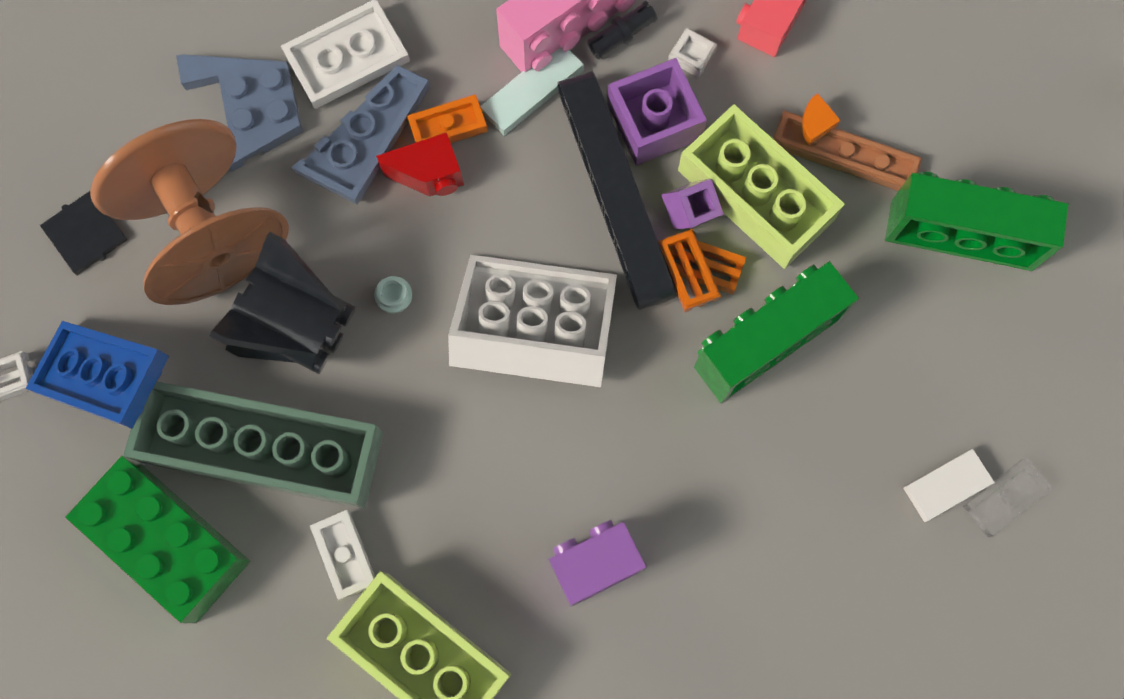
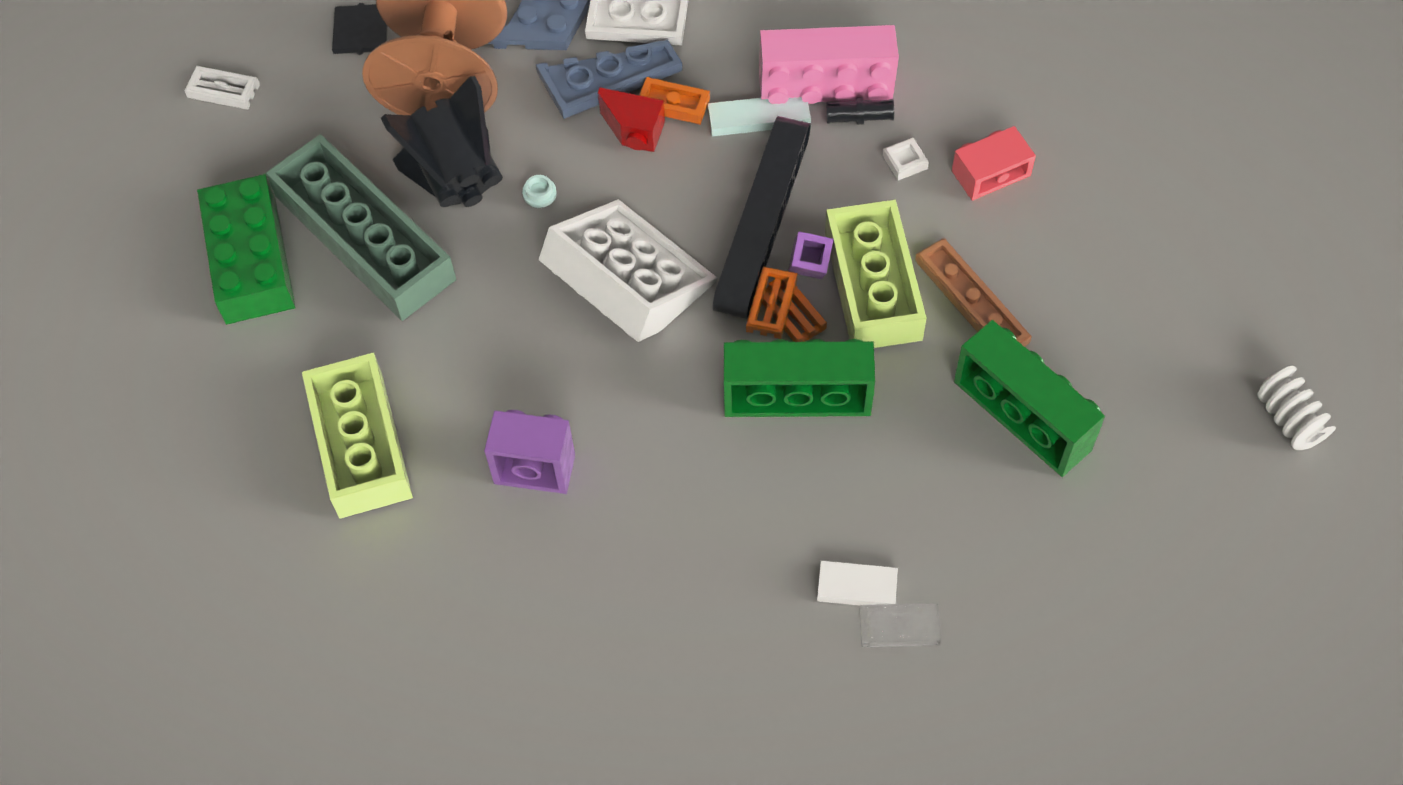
camera: 35 degrees right, 15 degrees down
(98, 373) = (293, 114): blue plate -> none
(343, 554) = (362, 332): white plate -> none
(656, 111) = (834, 173): medium lavender brick -> none
(818, 119) = (962, 257): orange tile -> none

